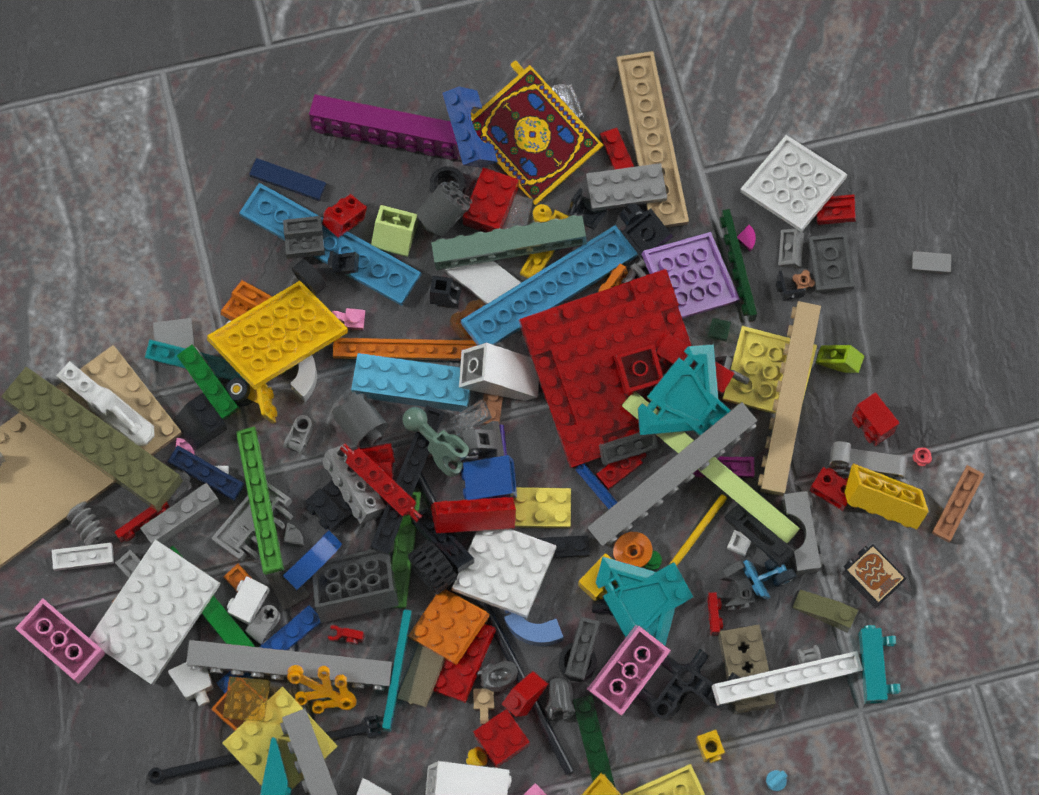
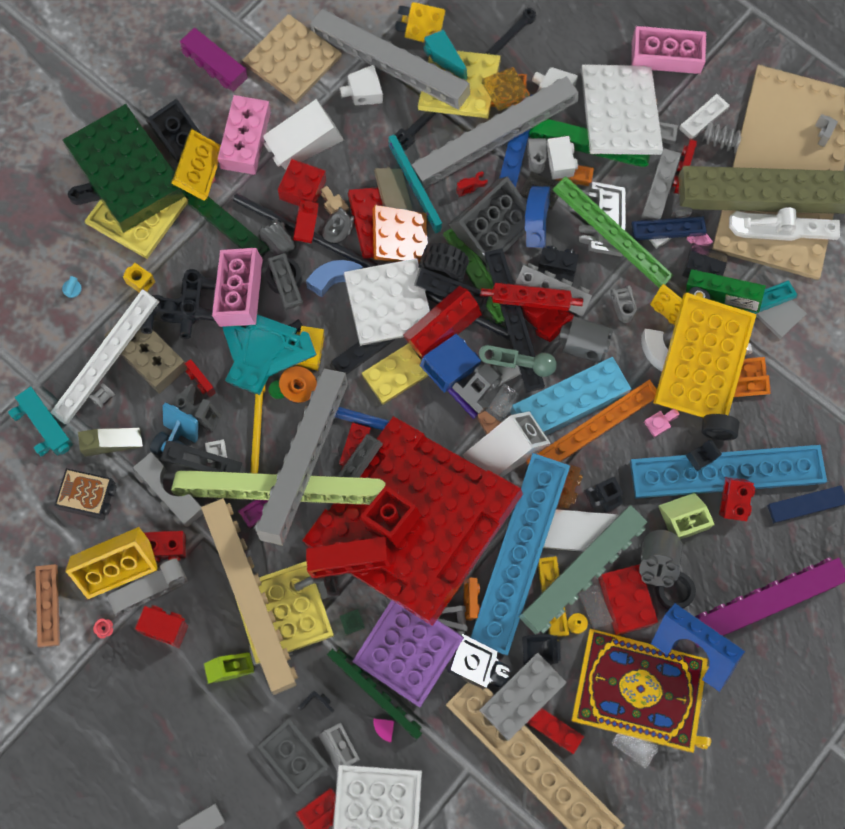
camera: 140 degrees right, 0 degrees up
(293, 535) = (567, 230): light grey tile -> none
(303, 237) = (752, 457): dark grey slope -> none
(344, 700) = (455, 129): light orange plant -> none
(477, 757) = (311, 159): yellow tile -> none
(685, 396) = (334, 519): teal plate -> none
(798, 280) = (309, 727): nougat plate -> none

